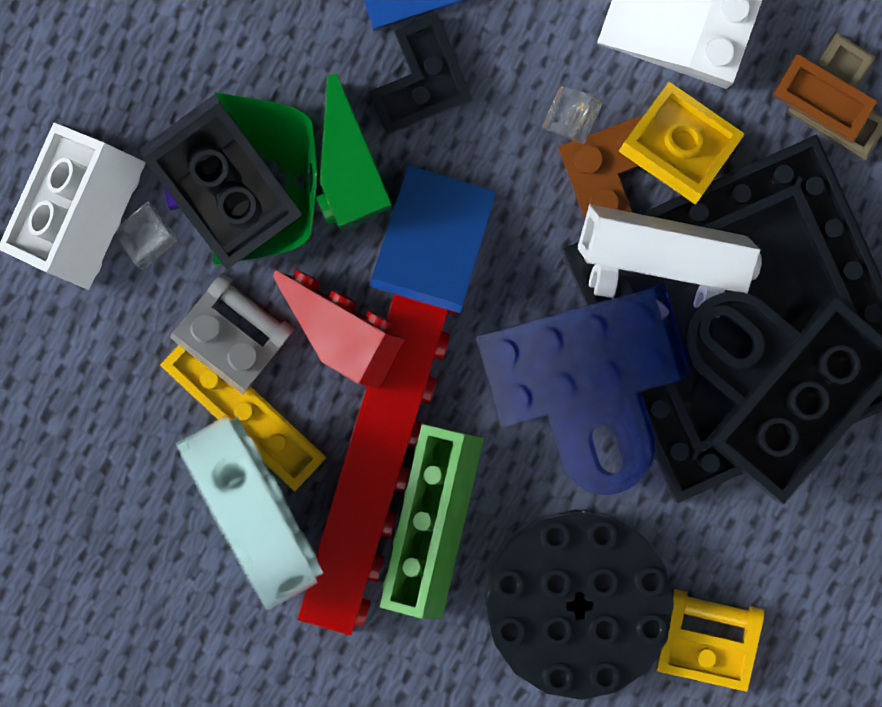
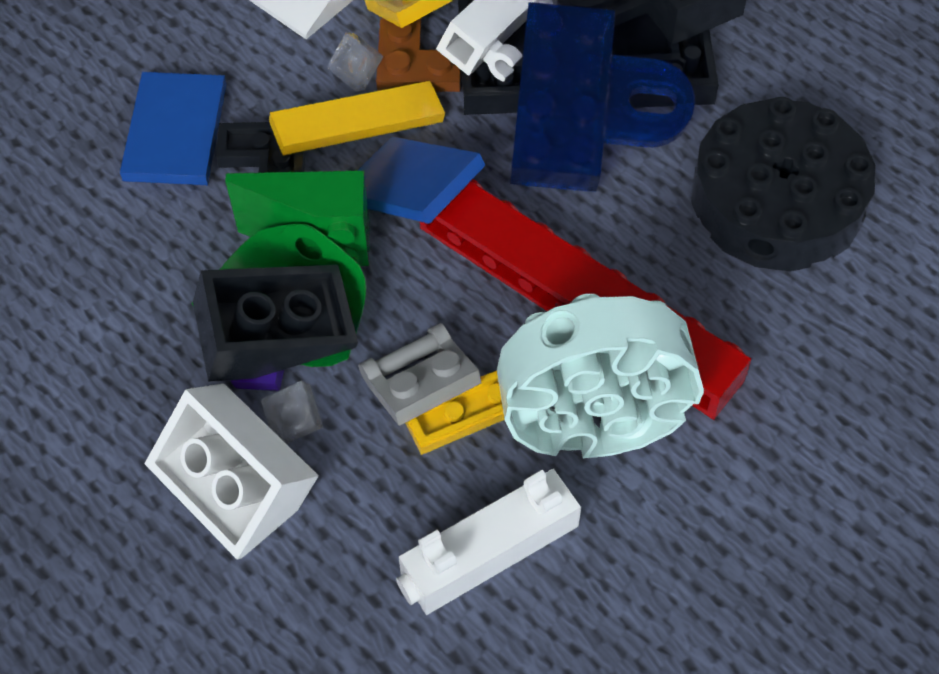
camera: 70 degrees left, 30 degrees down
(88, 461) = (487, 541): none -> white brick
(341, 337) = (461, 266): slope -> none
(431, 522) = (667, 263): bright green brick -> none
(498, 150) = (356, 117): none -> yellow tile
(710, 656) = (866, 104): yellow plate -> none

